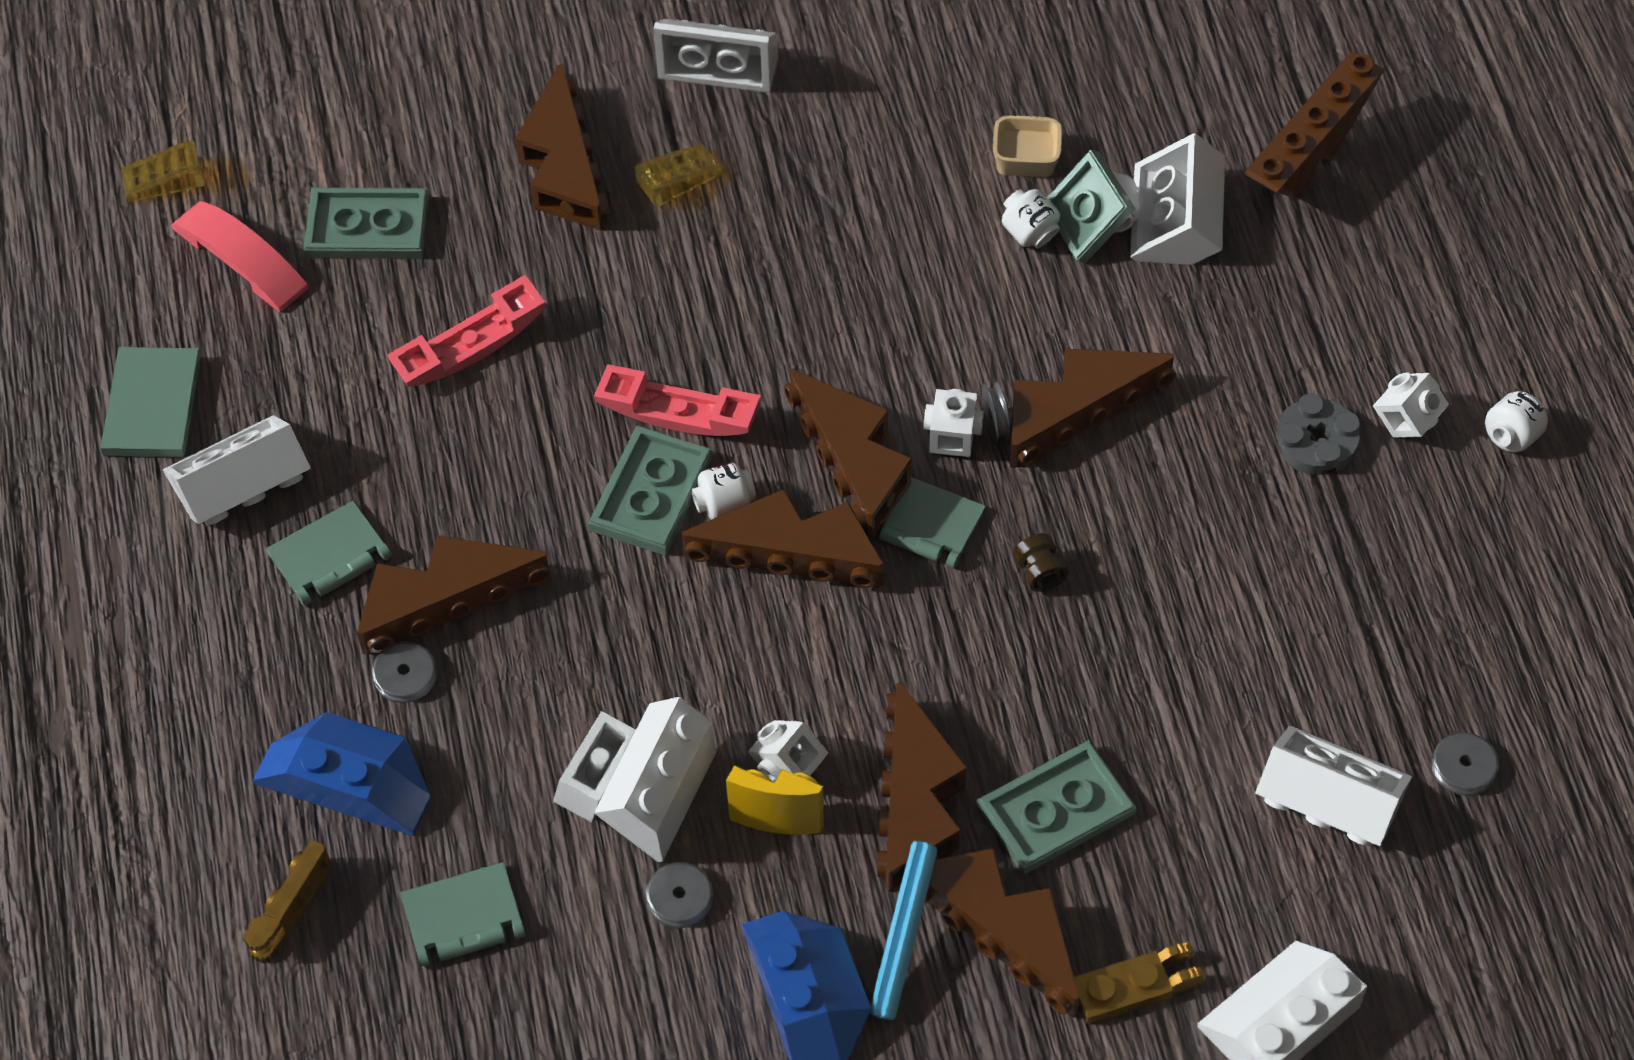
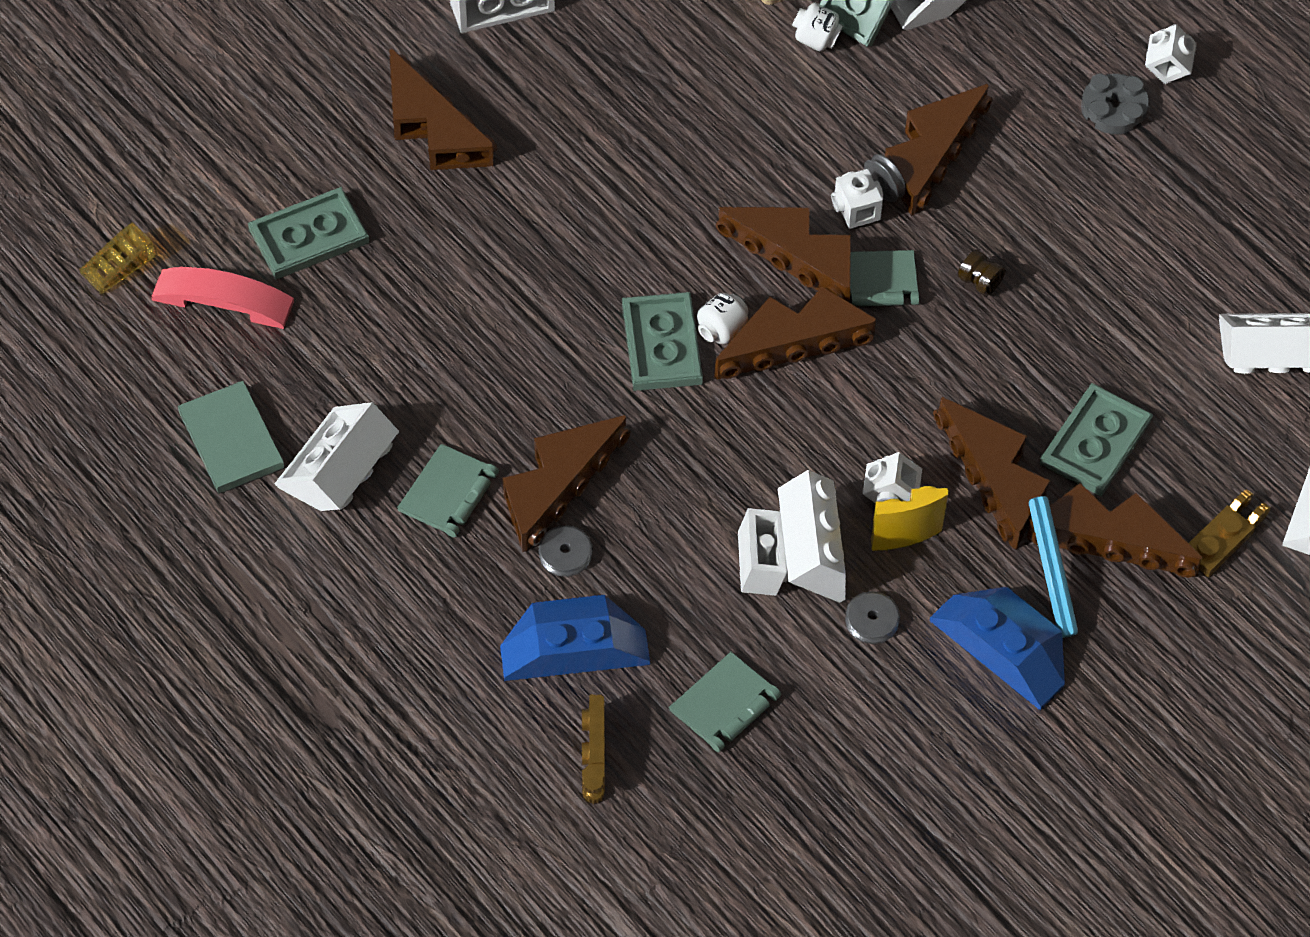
camera: 30 degrees left, 0 degrees up
(471, 339) = (454, 283): coral slope -> none
(672, 186) = (523, 118): clear yellow slope -> none
(674, 407) = (645, 272): coral slope -> none
(1516, 421) = (1249, 34): white head -> none

